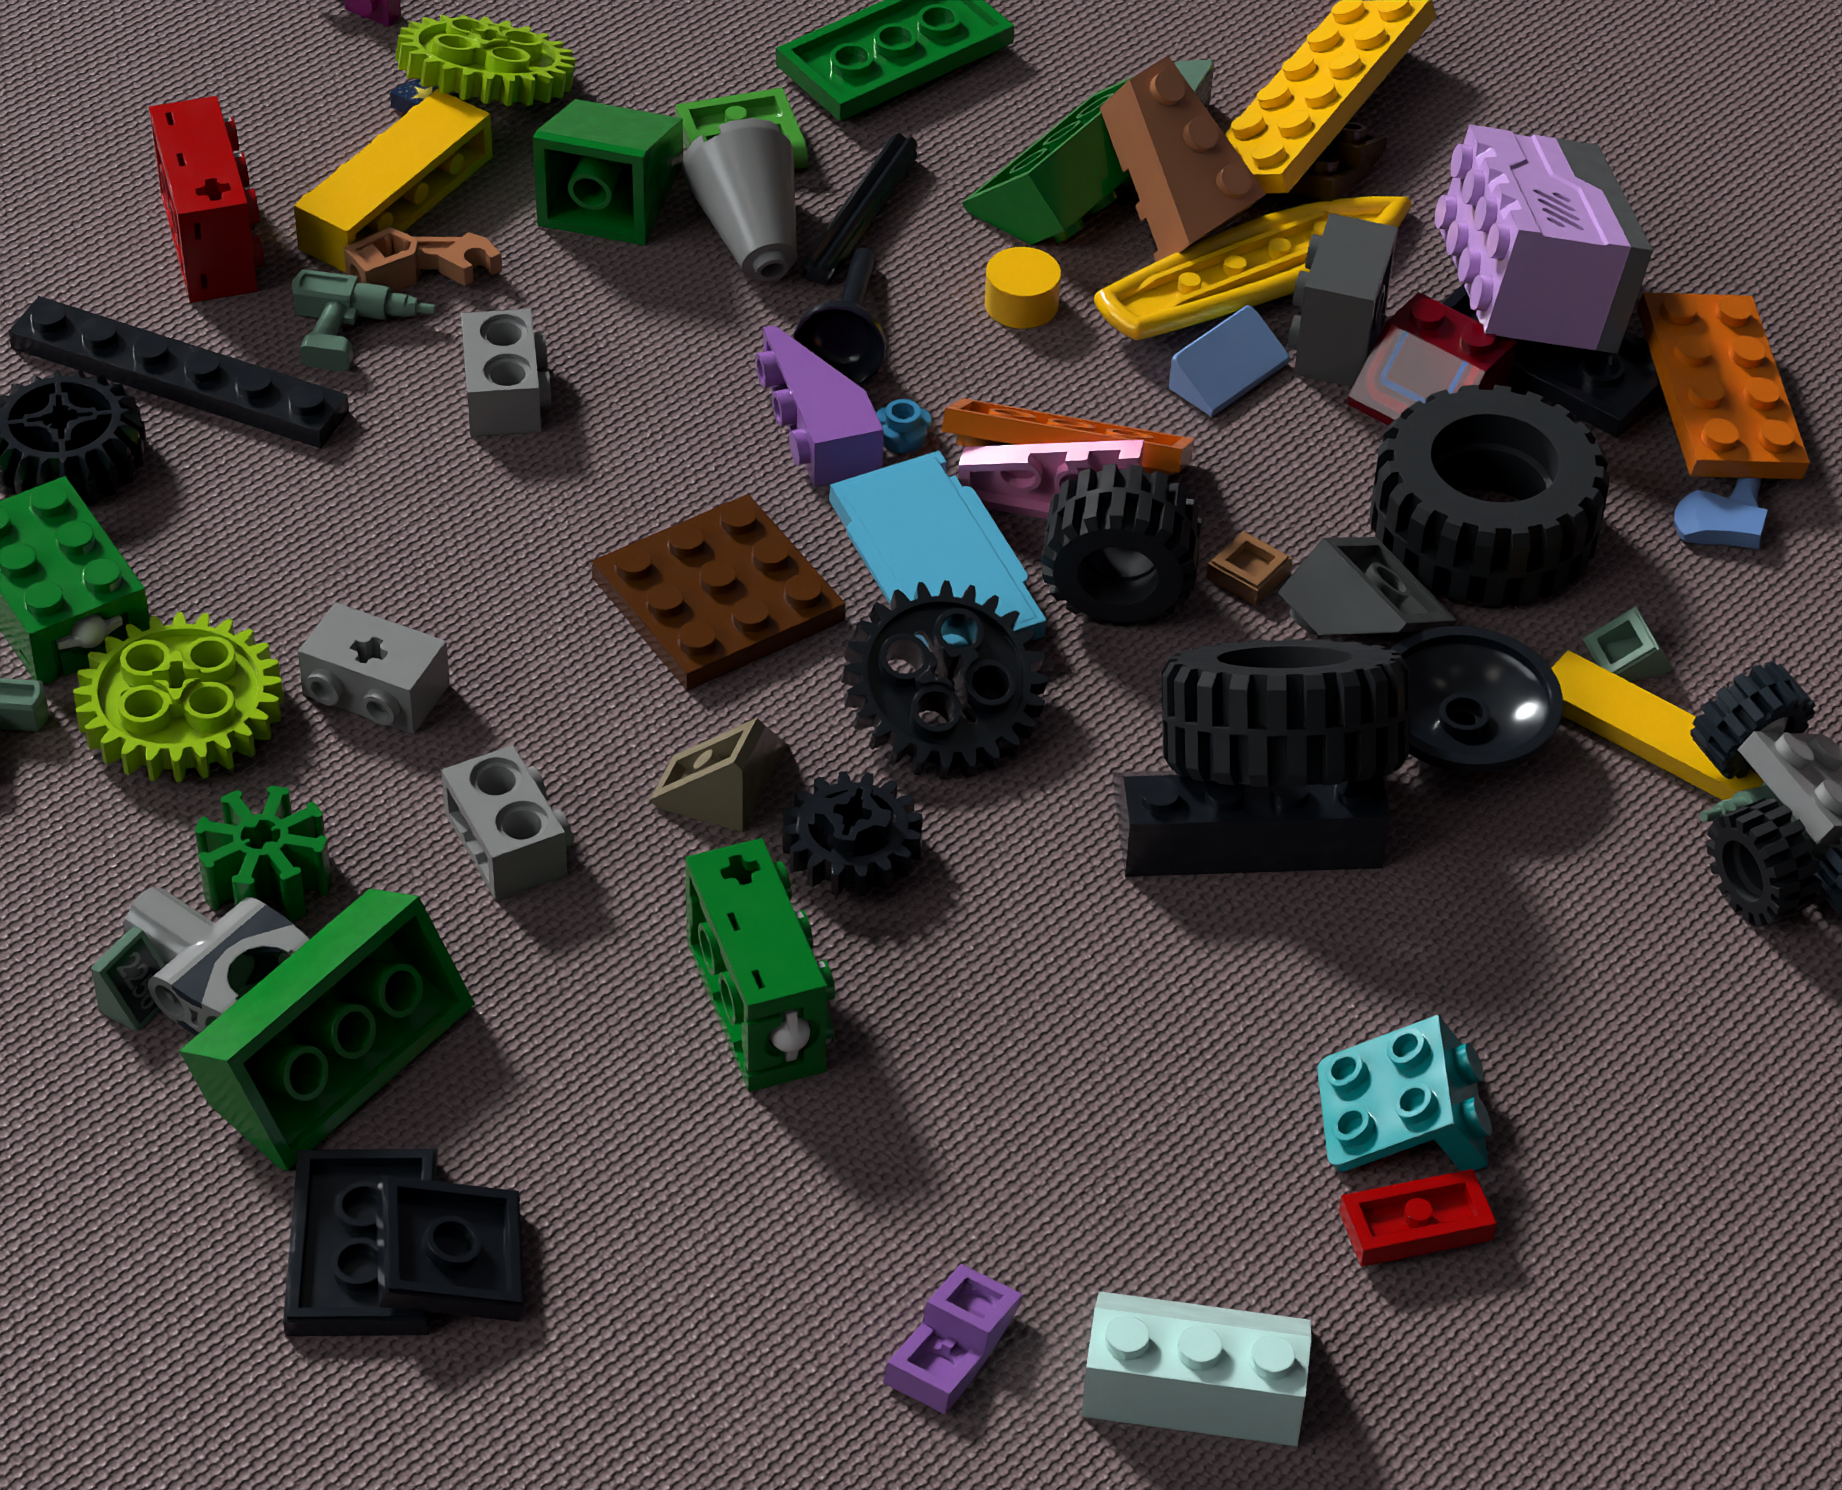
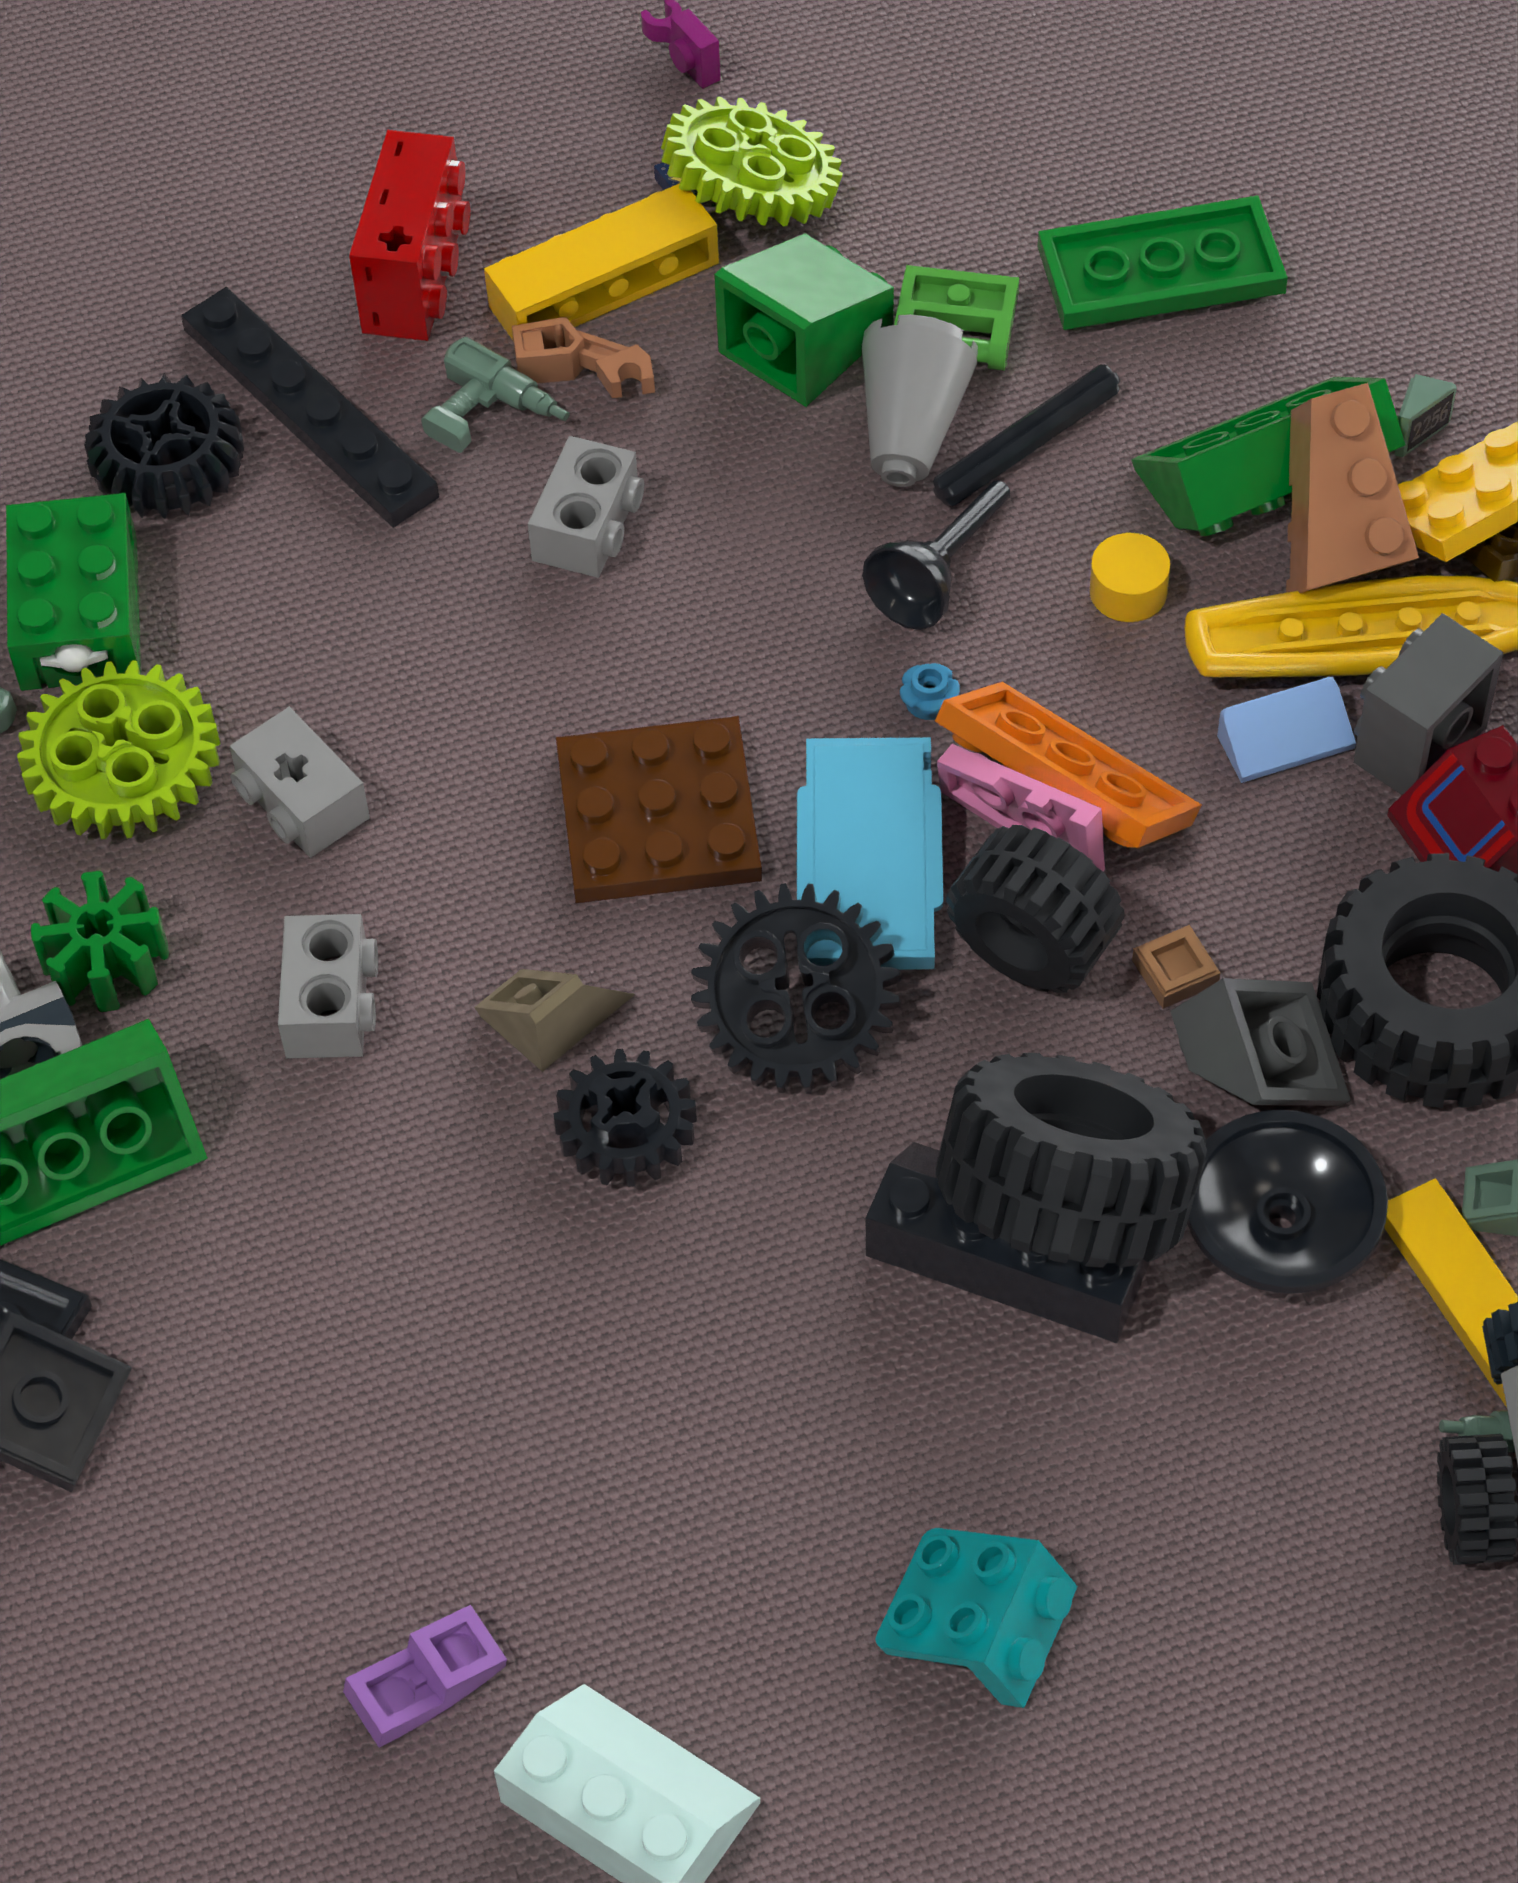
camera: 30 degrees right, 10 degrees up
(758, 964) = (447, 1227): green piece -> none
(826, 412) = (857, 656): medium lavender slope -> none
(1417, 1217) = (916, 1736): red plate -> none

